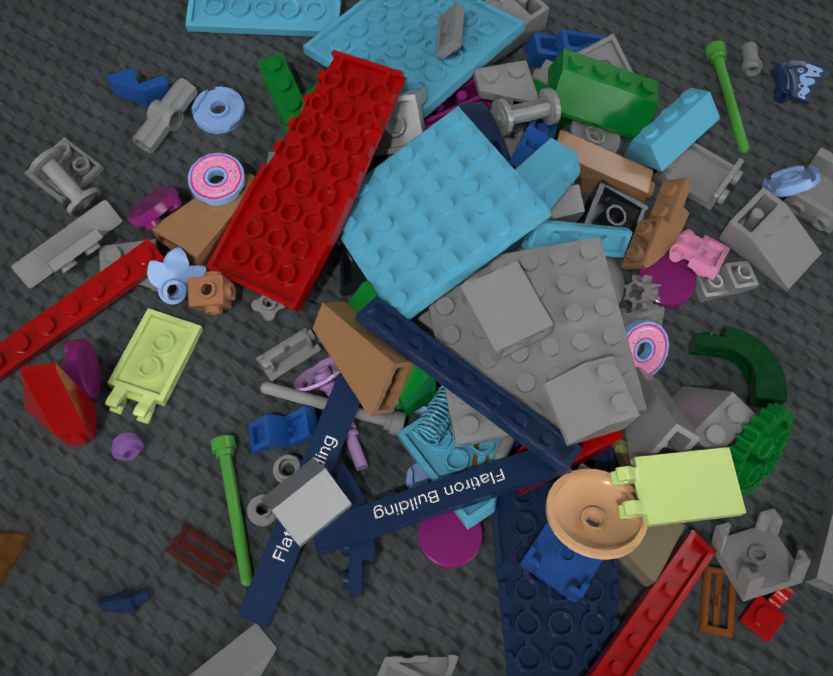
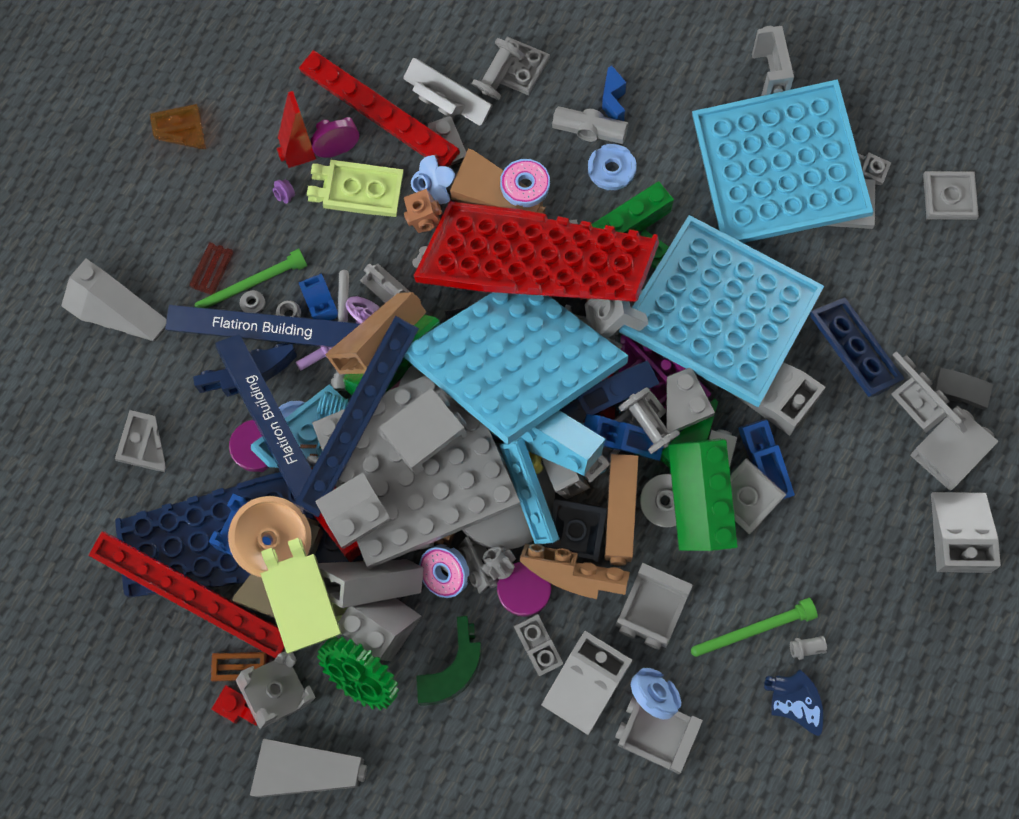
camera: 85 degrees right, 5 degrees up
(124, 601) = (169, 227): dark blue bar -> none
(150, 208) = (492, 143): magenta tile -> none
(307, 501) = (252, 325): light grey slope -> none
(450, 31) = (732, 334): light grey plate -> none
(674, 130) = (676, 567): medium azure slope -> none
(703, 254) = (551, 620): bright pink plate -> none

